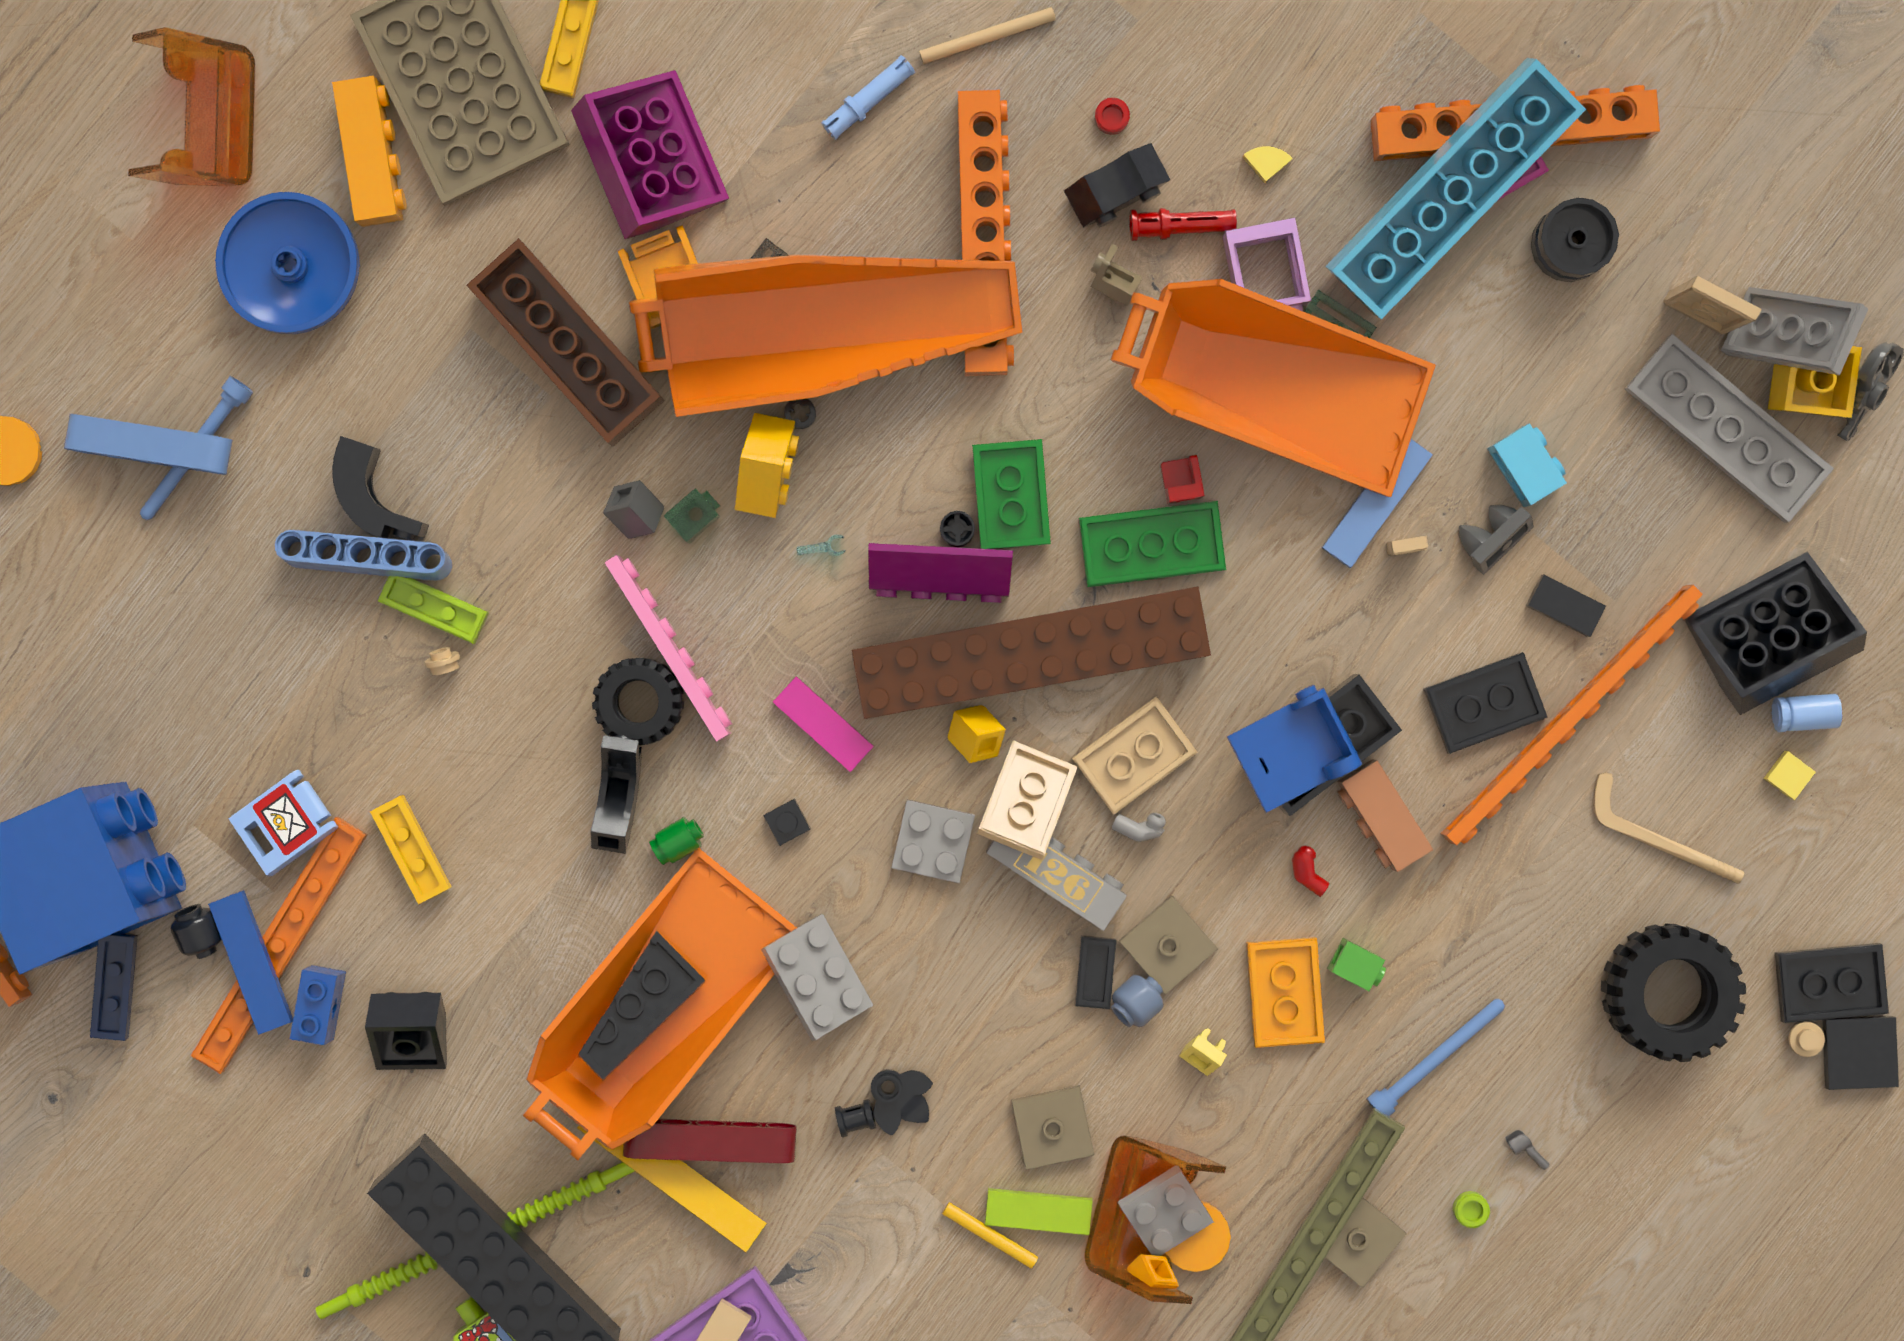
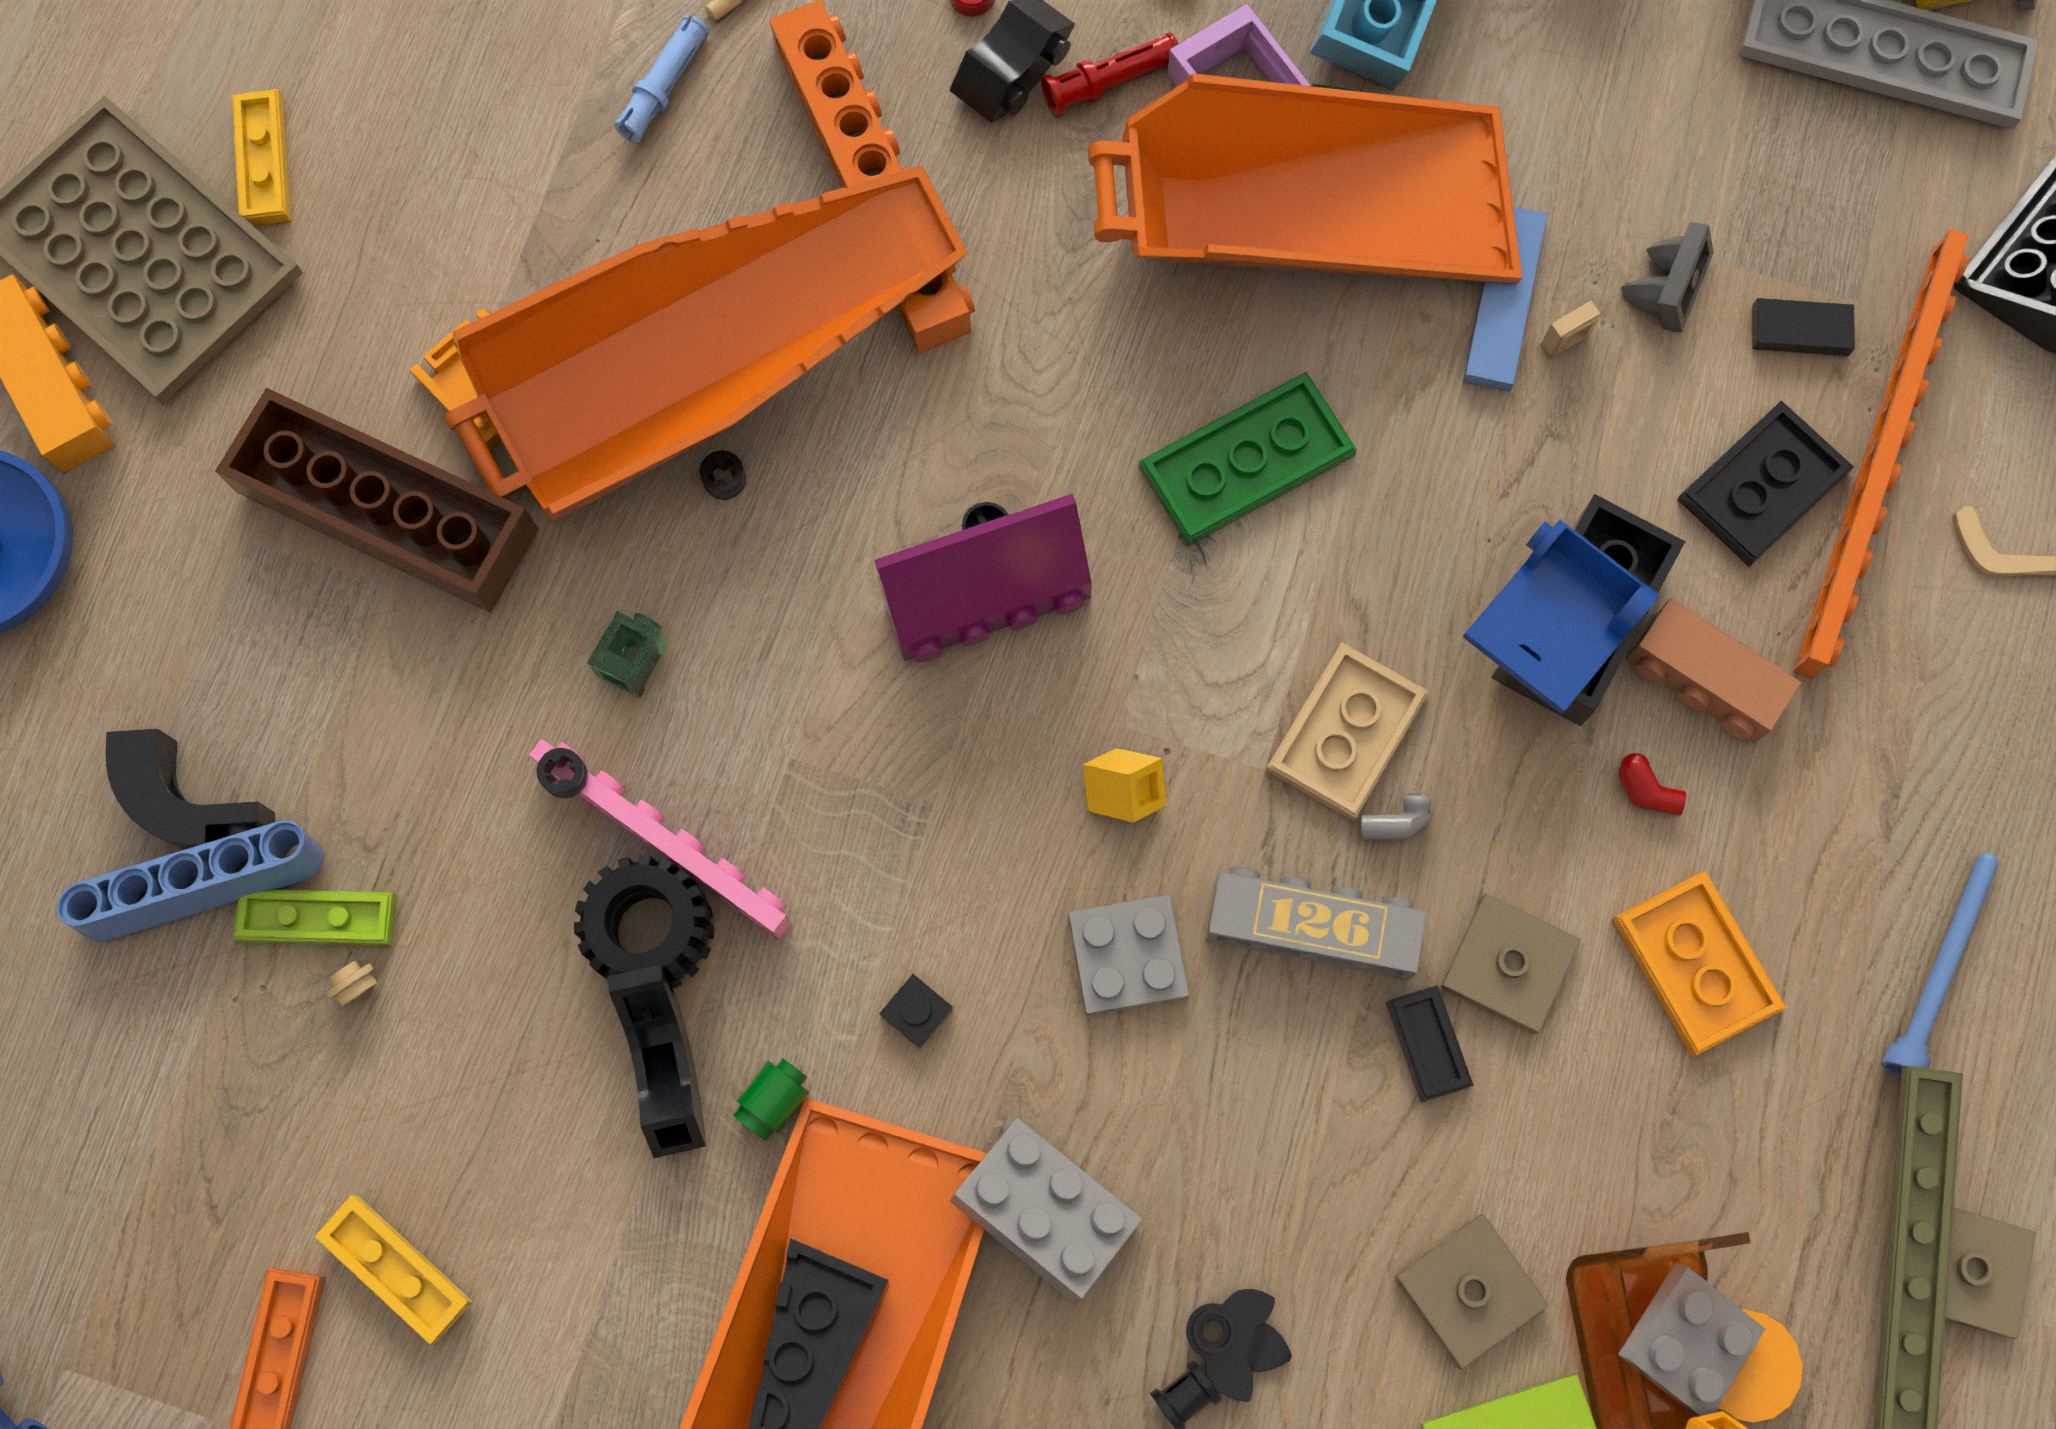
camera: 20 degrees left, 15 degrees down
(288, 821) = (198, 1300): container -> none
(621, 597) = (565, 788): none -> black bush
(633, 509) = (546, 678): dark grey panel -> none
(649, 153) = (405, 241): magenta slope -> none
(766, 465) = (697, 545): yellow brick -> none
(821, 547) = (822, 628): clear light blue hand -> none
(823, 724) = (912, 858): dark pink tile -> none
(1011, 494) = (1038, 455): green plate -> none
(1027, 800) = (1233, 841): tile -> none
(1031, 652) = (1149, 649): reddish brown brick -> none
(1114, 279) = (1061, 167): dark tan bracket -> none
(1137, 1001) = (1506, 1056): sand blue head -> none
(1182, 479) = (1252, 363): red panel -> none
(1203, 1054) = (1632, 1092): light yellow tile -> none
(1357, 965) = (1777, 881): bright green brick -> none
(1528, 464) = (1669, 178): medium azure brick -> none

